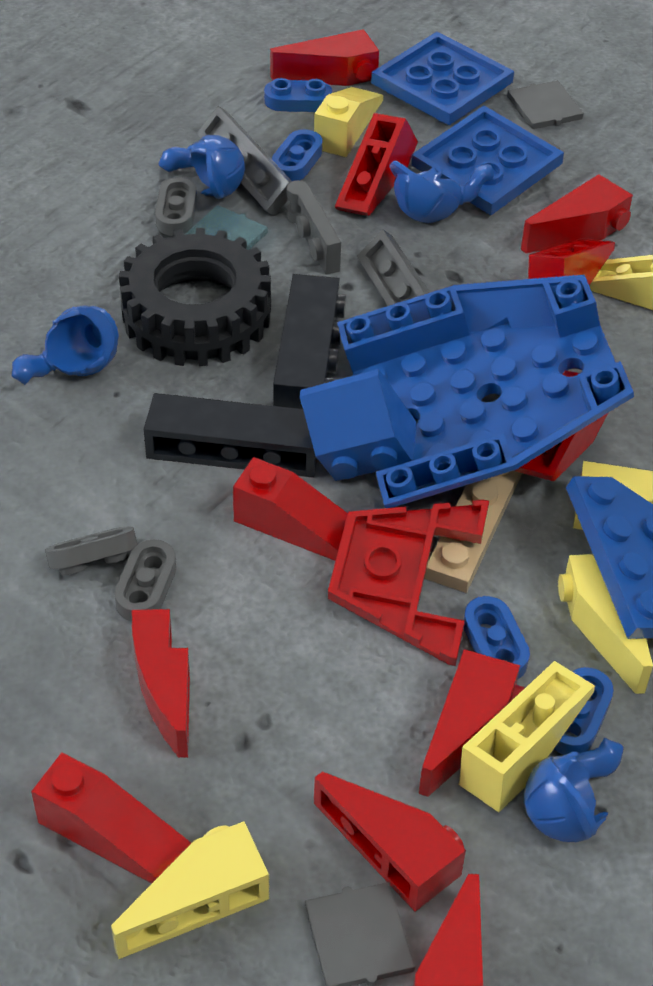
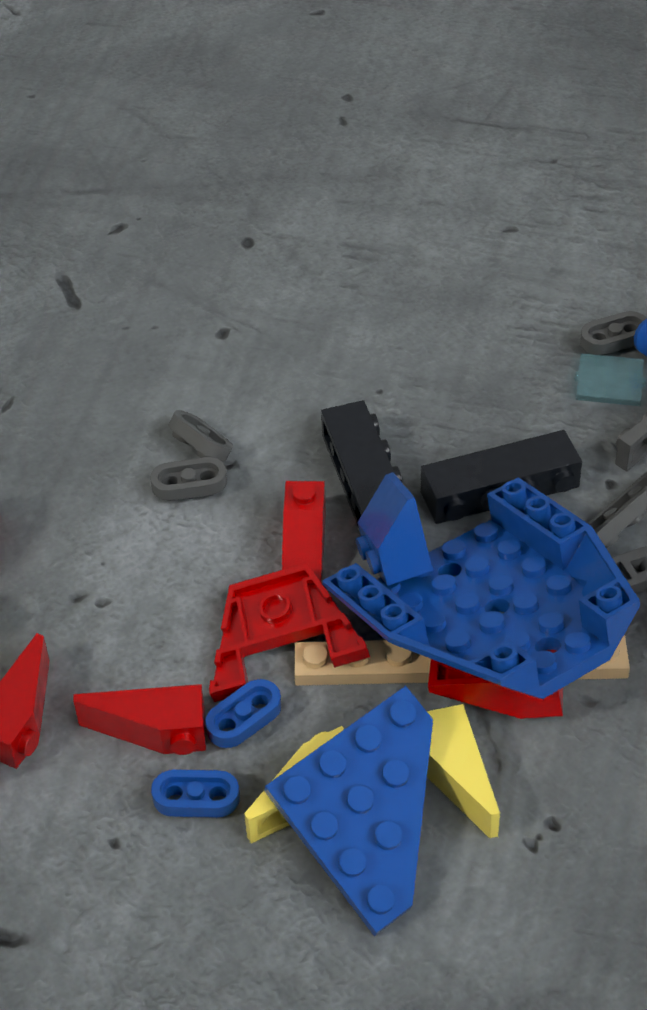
camera: 70 degrees right, 0 degrees up
(77, 344) = (396, 341): blue piece -> none
(163, 676) = (99, 523): red slope -> none
(195, 329) = (503, 418): black tyre -> none
(522, 735) = (135, 751): light yellow slope -> none
(560, 792) = (98, 801): blue piece -> none

